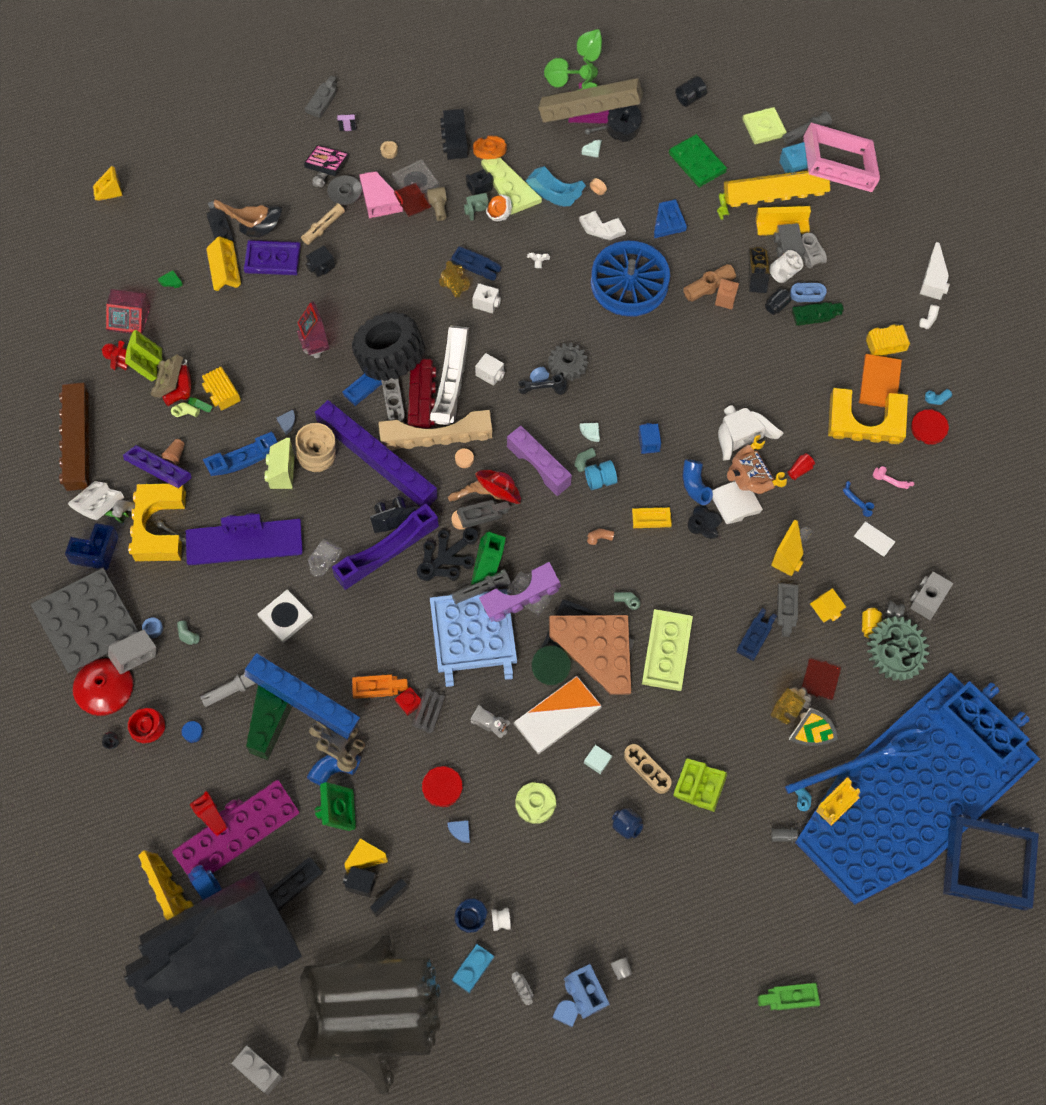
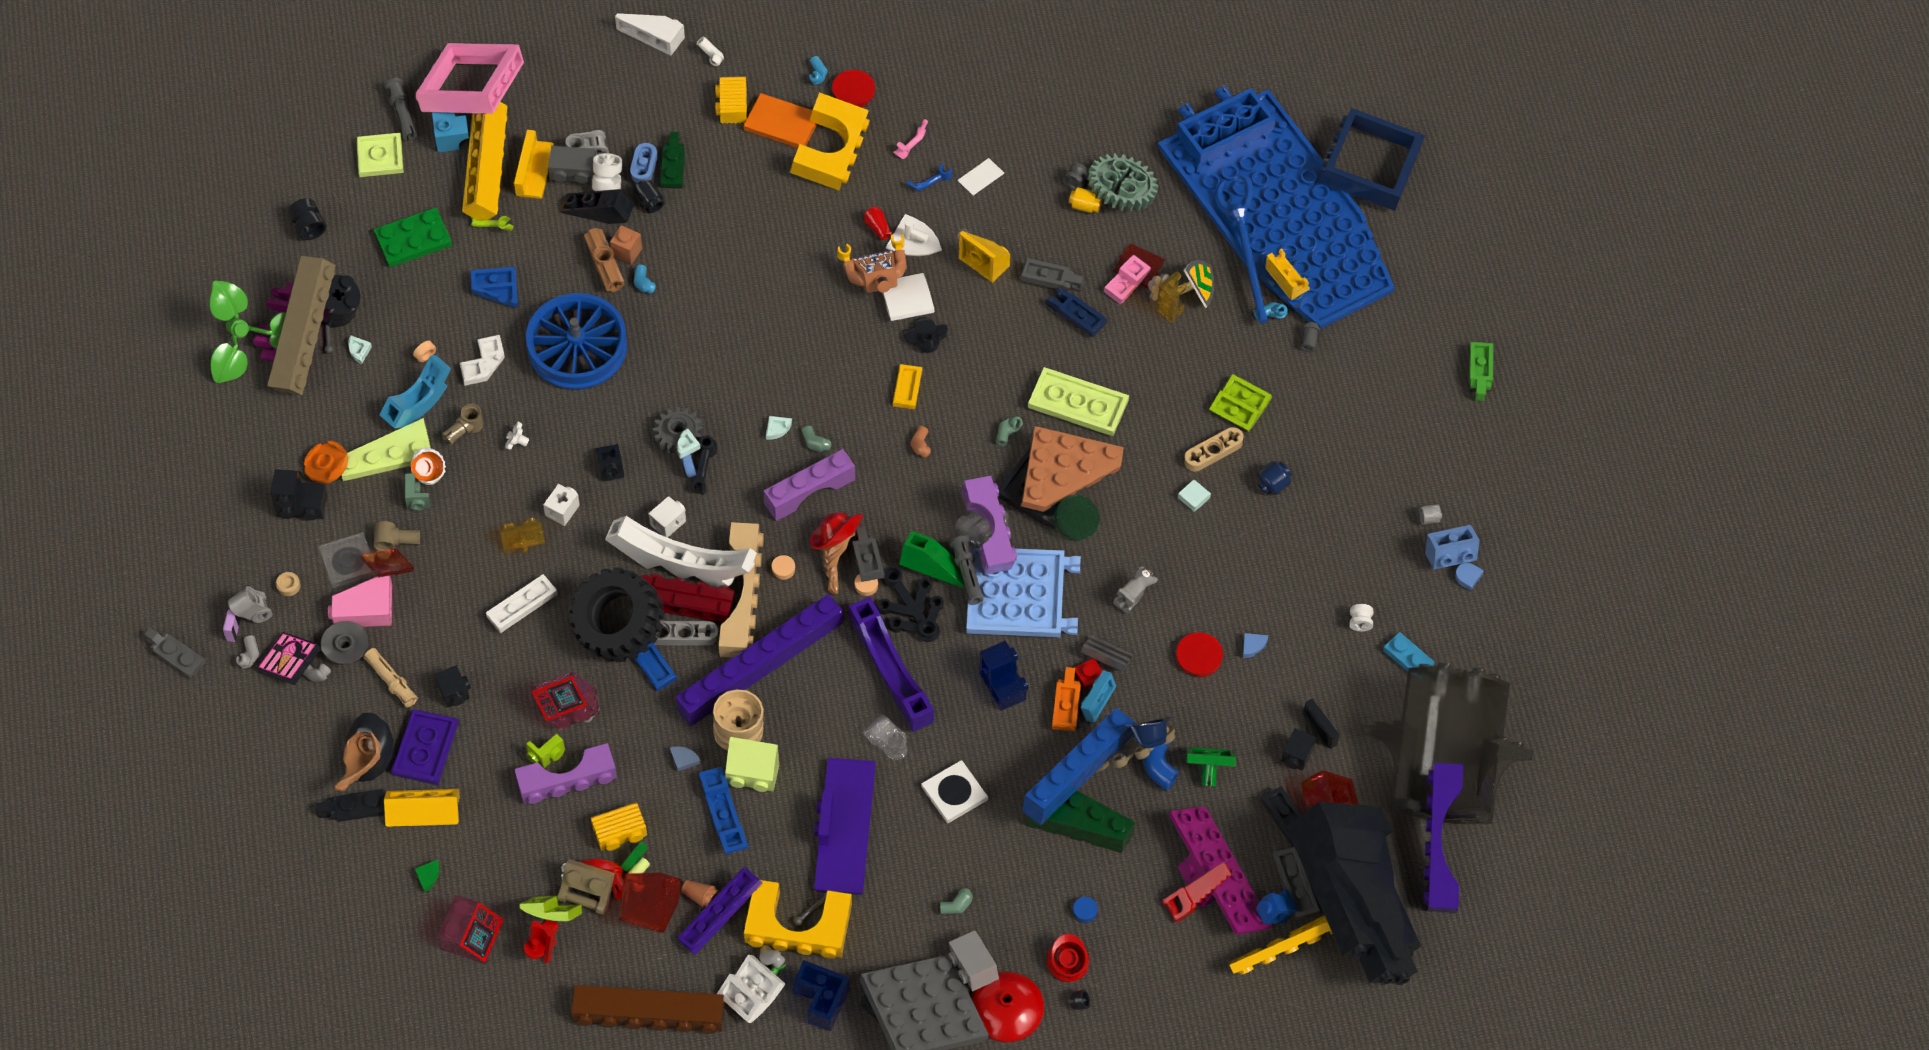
camera: 80 degrees left, 5 degrees down
(108, 185) = (249, 937): yellow slope -> none
(152, 627) = (939, 942): medium blue tile -> none
(158, 416) = (649, 899): none -> clear red slope
(239, 684) = (1035, 849): light grey pin -> none
(239, 1026) = (1442, 886): none -> dark purple arch
(257, 1070) = (1491, 877): light grey brick -> none
(268, 362) = (537, 783): none -> medium lavender arch
(274, 330) = (547, 753): none -> lime bracket
(316, 919) = (1328, 788): none -> clear red slope
(329, 140) = (251, 654): none -> light grey arm
(335, 741) = (1150, 733): none -> dark blue piece
(363, 130) = (250, 605): none -> light grey piece
(365, 856) = (1268, 742): yellow slope -> none
(384, 709) = (1098, 696): none -> dark azure plate
(389, 519) = (854, 660): black connector -> none
(389, 632) = (1000, 675): none -> clear blue brick
(397, 291) = (521, 603): none -> white plate
(470, 915) = (1353, 645): dark blue hair -> none
(475, 263) = (502, 510): dark blue hinge -> none
(479, 182) = (378, 483): black brick -> none
(522, 988) = (1439, 606): light grey gear -> none
(531, 321) = (610, 462): none -> black bracket
(535, 802) = (1233, 565): yellowish green tile -> none
(541, 224) = (464, 425): none -> dark tan pin
(552, 367) = (687, 444): none -> light aqua tile
(557, 715) = (1134, 525): tile -> none
(600, 475) = (844, 423): dark azure wheel -> none
(649, 438) = (804, 365): blue brick -> none
(693, 482) = (874, 333): blue cylinder -> none
(700, 311) = (641, 281): none -> dark azure arm
(741, 428) = (815, 269): white torso -> none
(797, 498) = (918, 238): none -> white shield
(800, 670) = (1127, 279): none -> bright pink slope
(828, 606) = (1059, 234): yellow brick -> none
(938, 588) = (1064, 138): light grey brick -> none

